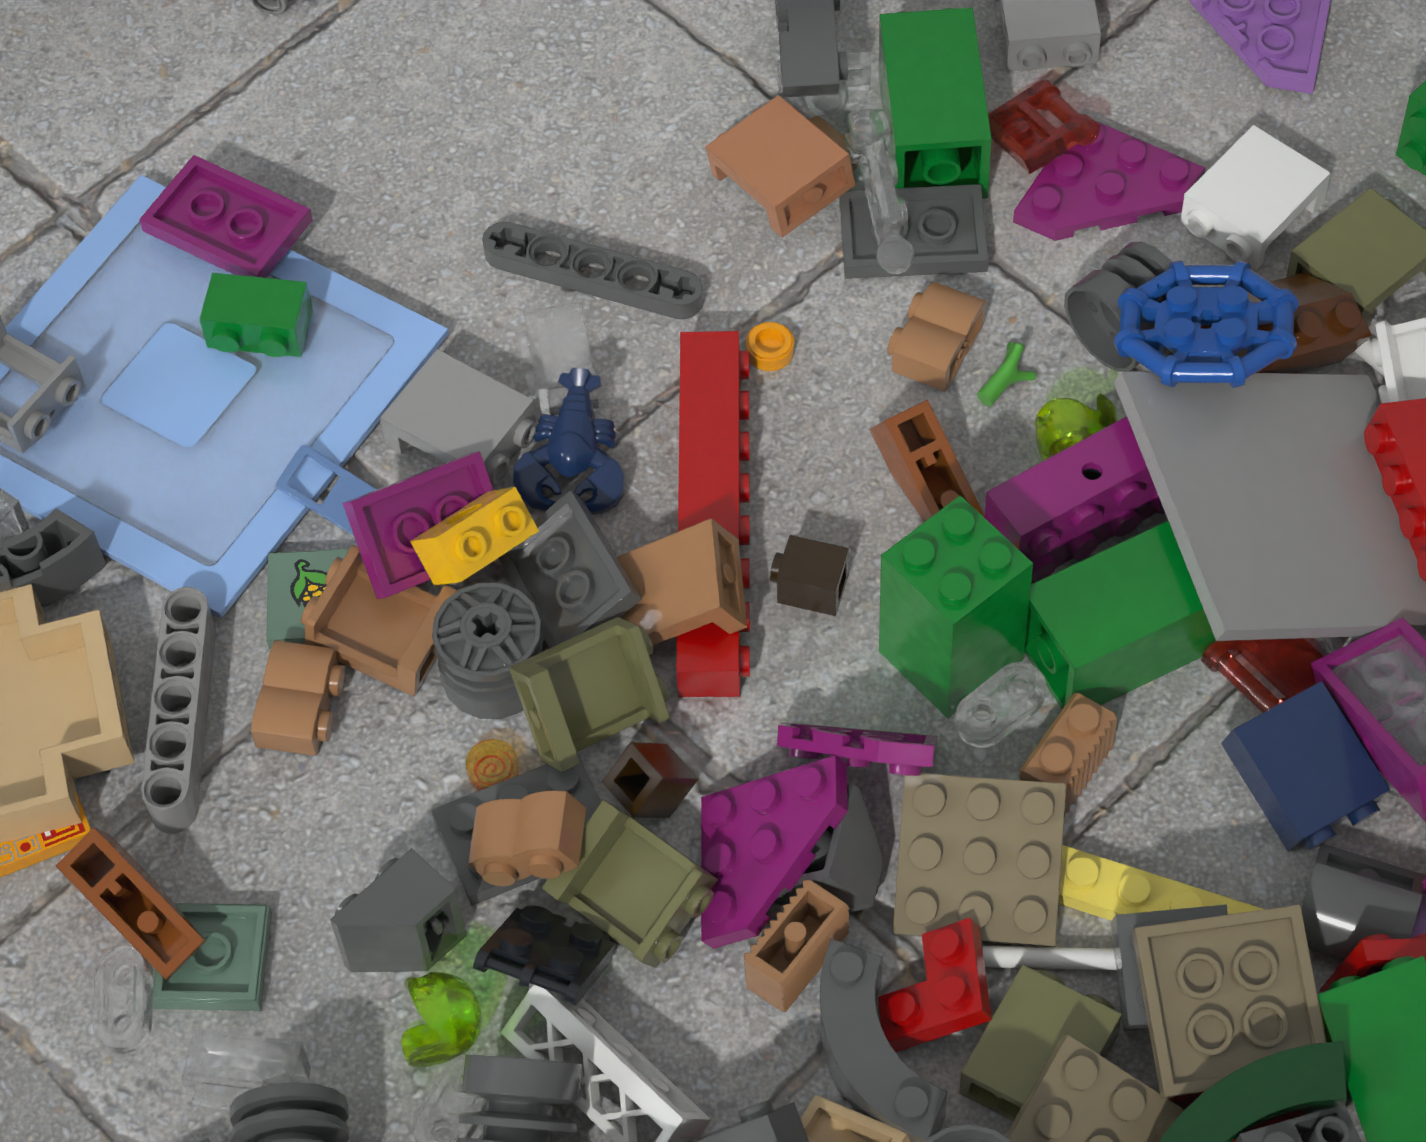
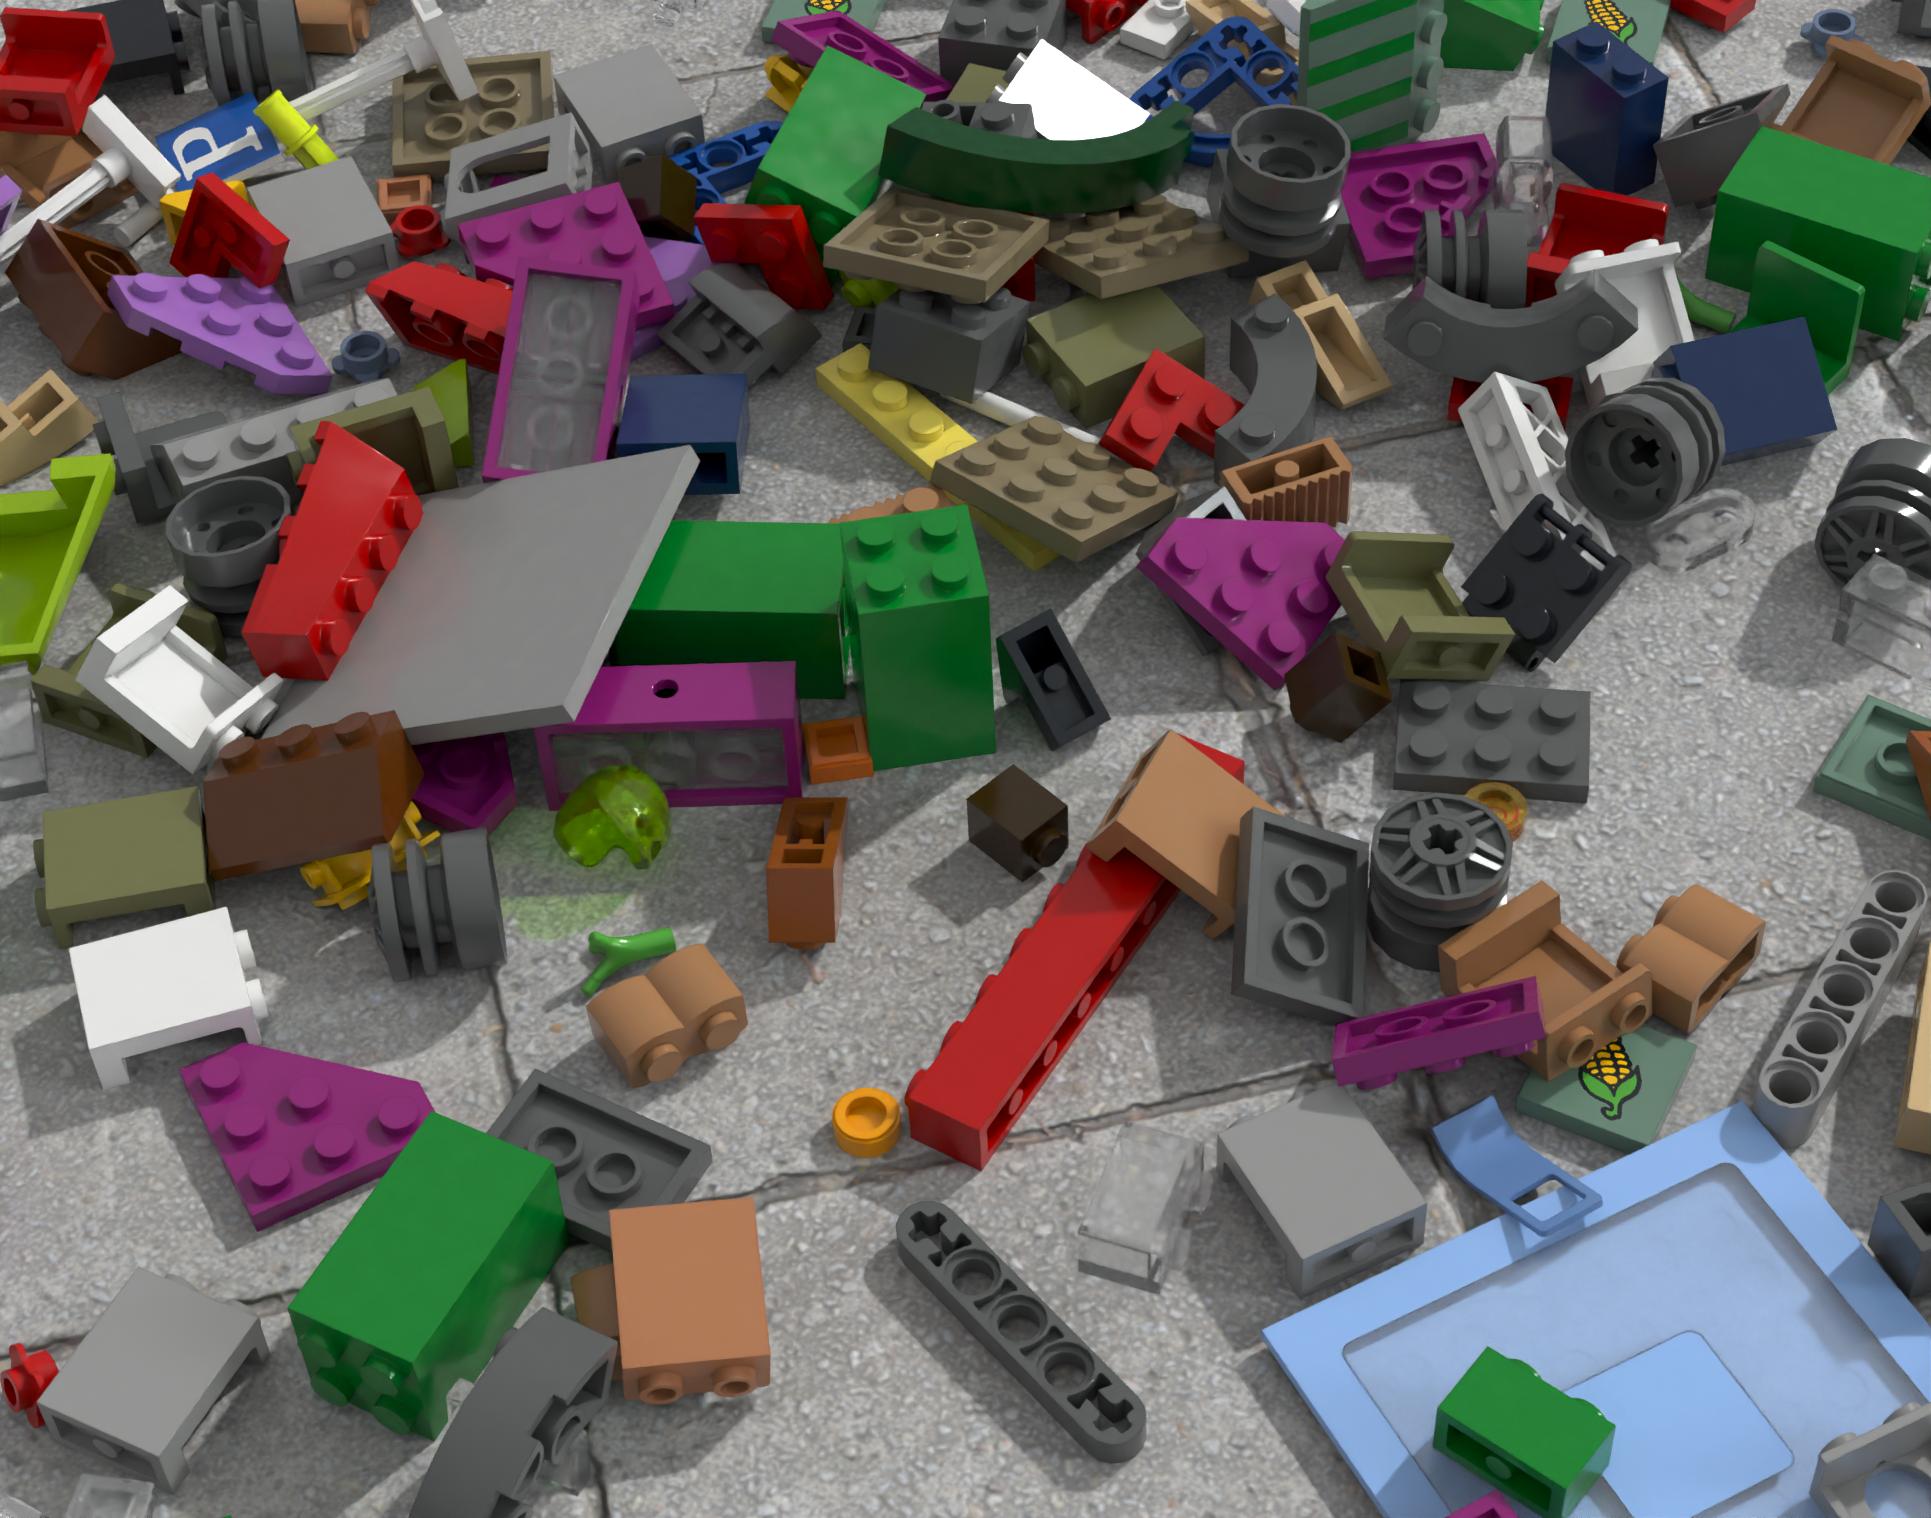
camera: 150 degrees left, 10 degrees down
(400, 919) = (1685, 660): dark grey slope -> none
(451, 1018) = (1683, 582): clear neon green helmet -> none
(474, 536) = (1431, 986): yellow brick -> none
(527, 837) = (1510, 652): medium nougat brick -> none
(572, 450) = (1200, 1078): dark blue animal -> none
(589, 690) = (1418, 778): olive panel -> none
(859, 747) = (1101, 593): magenta plate -> none
(861, 685) = (1047, 674): none -> black slope
(868, 148) = (592, 1186): clear plate -> none
(1033, 139) = (346, 1175): clear red plate -> none
(1234, 321) = (411, 701): blue plate -> none

